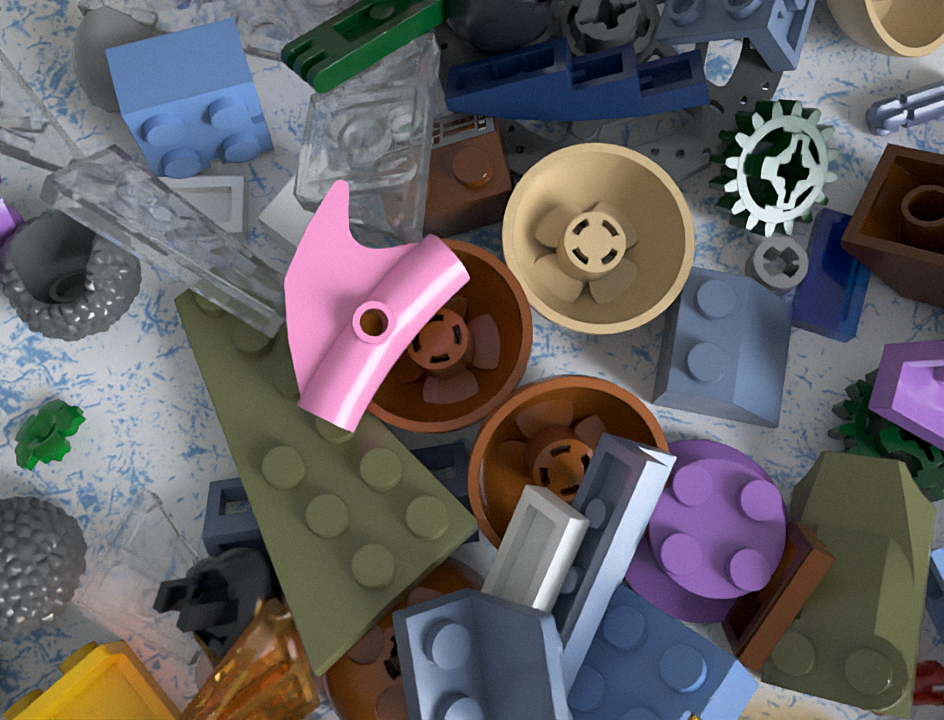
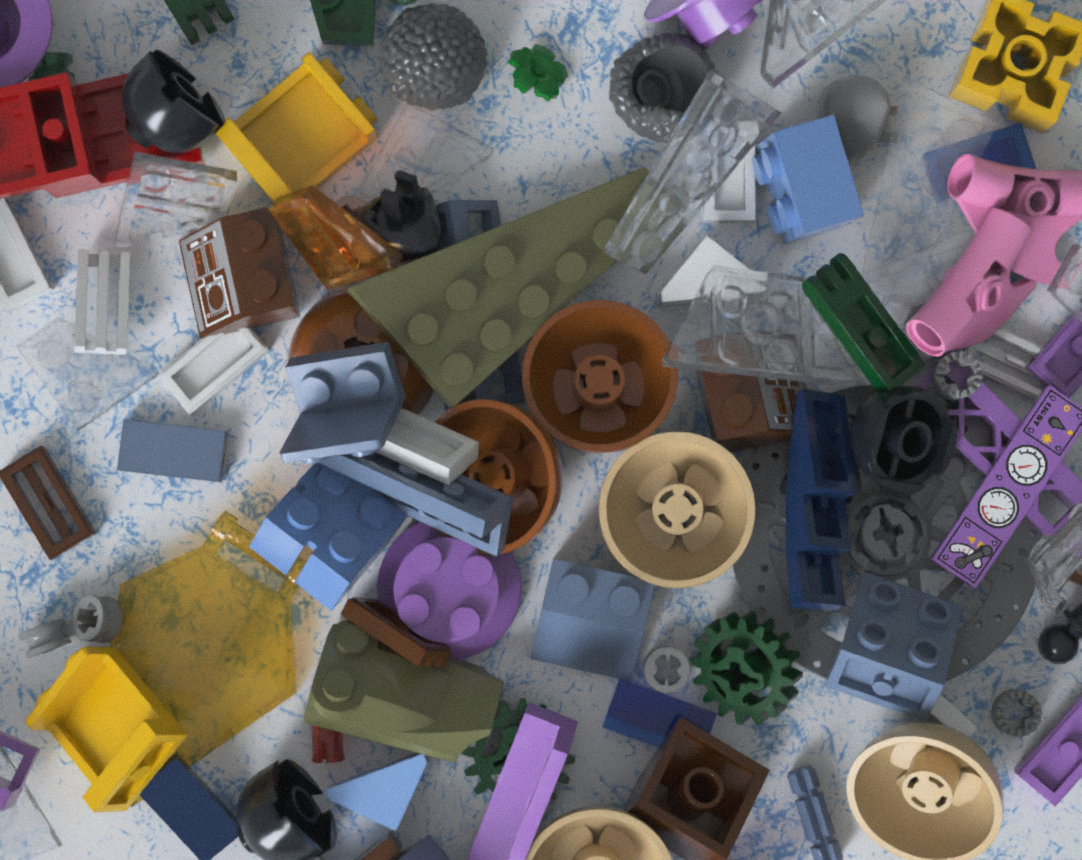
camera: 95 degrees right, 10 degrees up
(338, 282) = (629, 302): bright pink pin -> none

